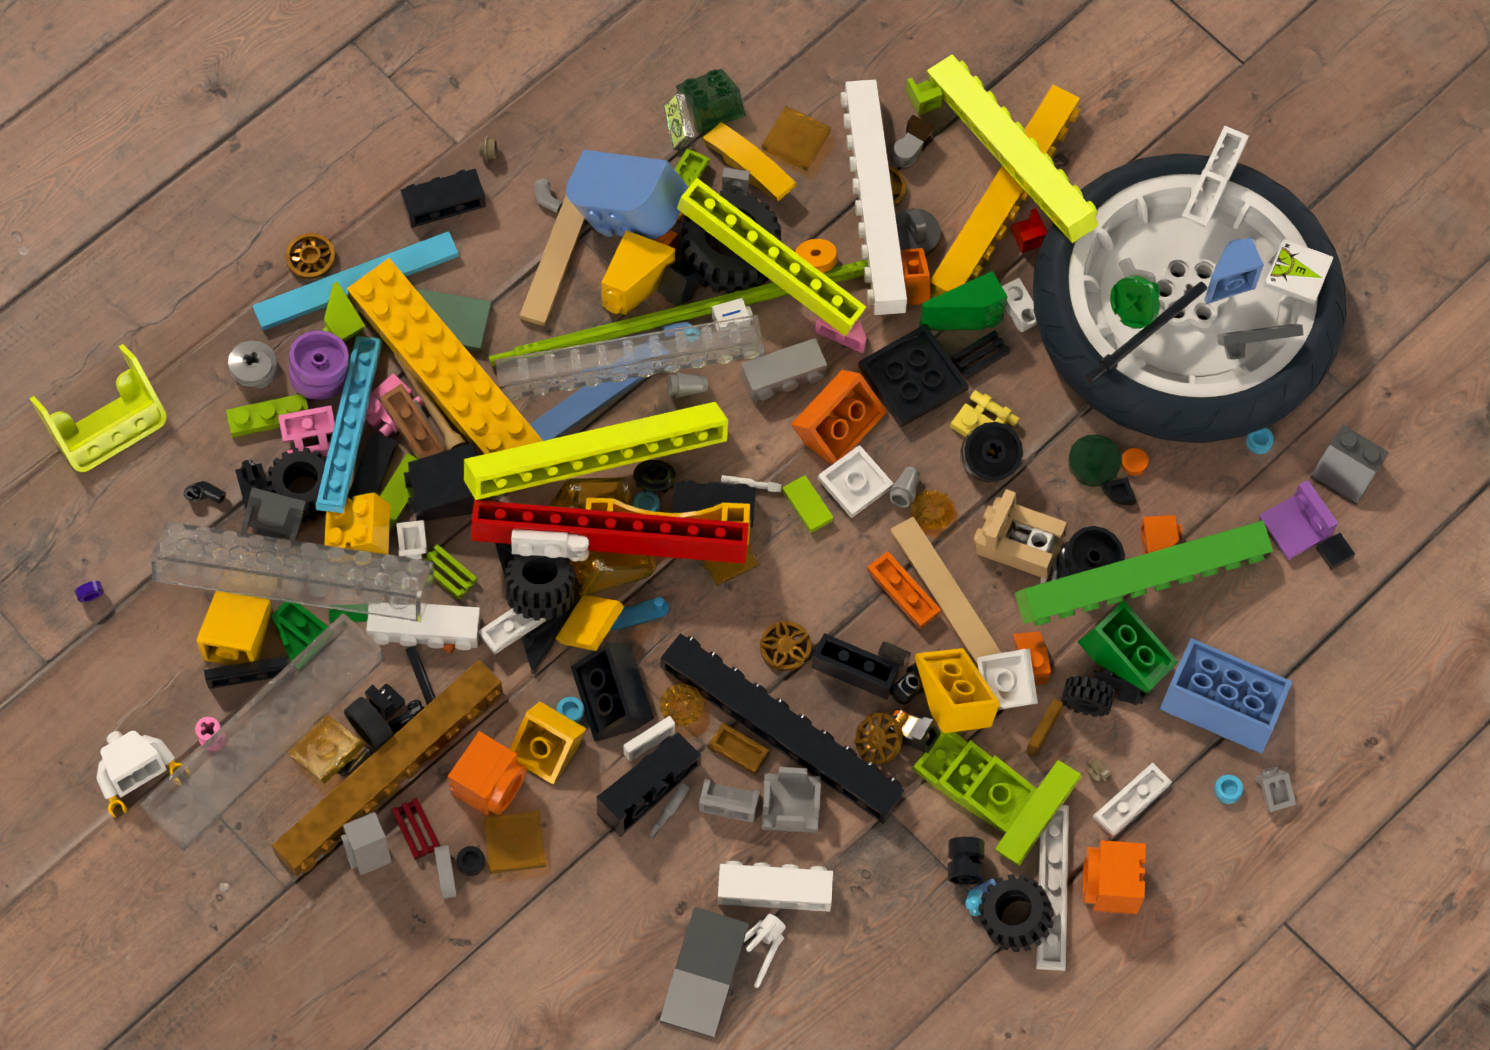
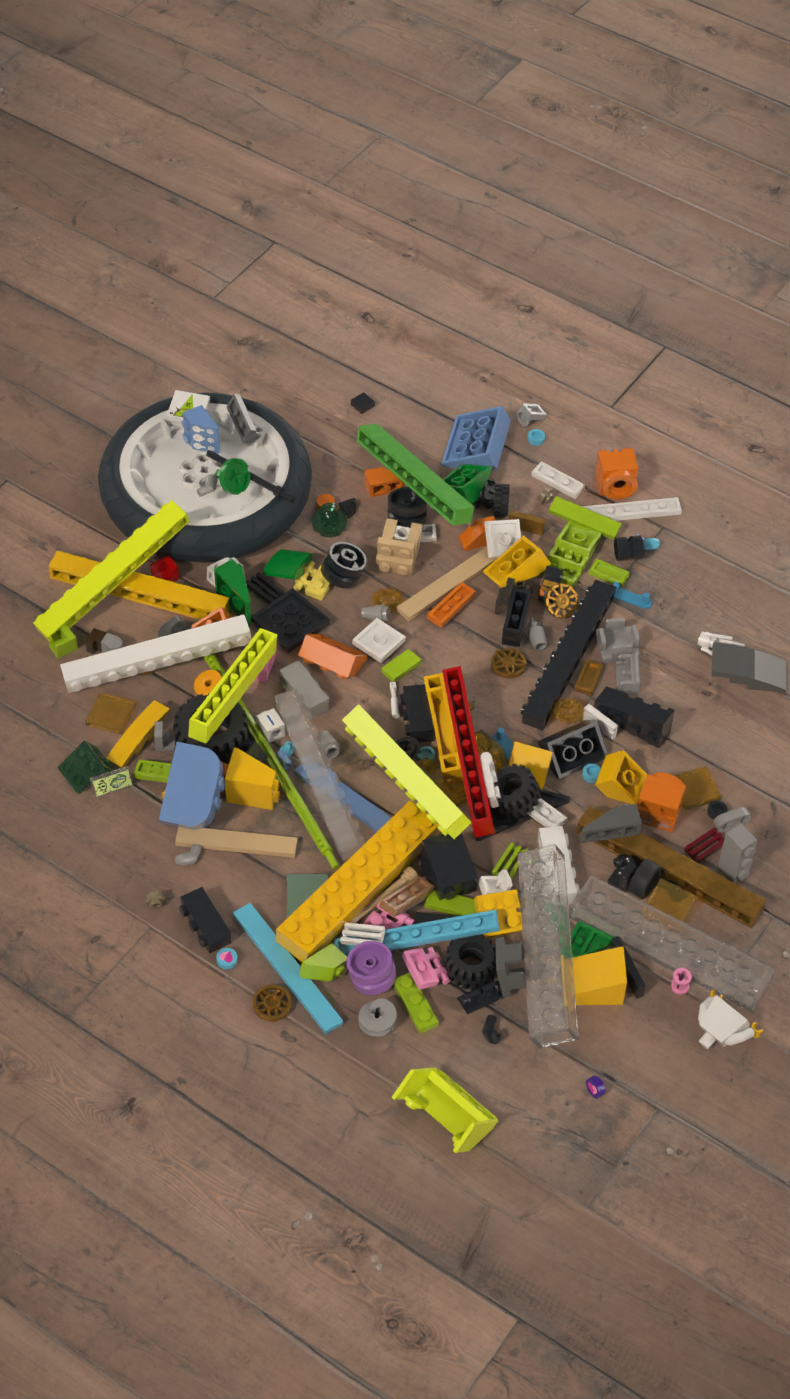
camera: 100 degrees left, 15 degrees down
(358, 359) = (362, 931): none -> white tile
(386, 216) = (226, 958): none -> medium azure tile
(420, 674) = (597, 863): black bar -> none
(455, 703) = (616, 823): none -> dark grey slope
(775, 886) = (678, 641): white brick -> none
(825, 691) = (536, 634): none -> light grey piece
(880, 847) = (632, 598): none -> dark azure piece
(931, 827) = (608, 572): none -> lime tile
(1012, 384) = (287, 564): none -> green slope
(1025, 933) = (660, 505): black tyre -> none
(1215, 176) = (131, 454): white slope -> none
(1299, 521) = (346, 416): medium lavender bracket -> none
(1349, 464) = (302, 398): dark grey slope -> none

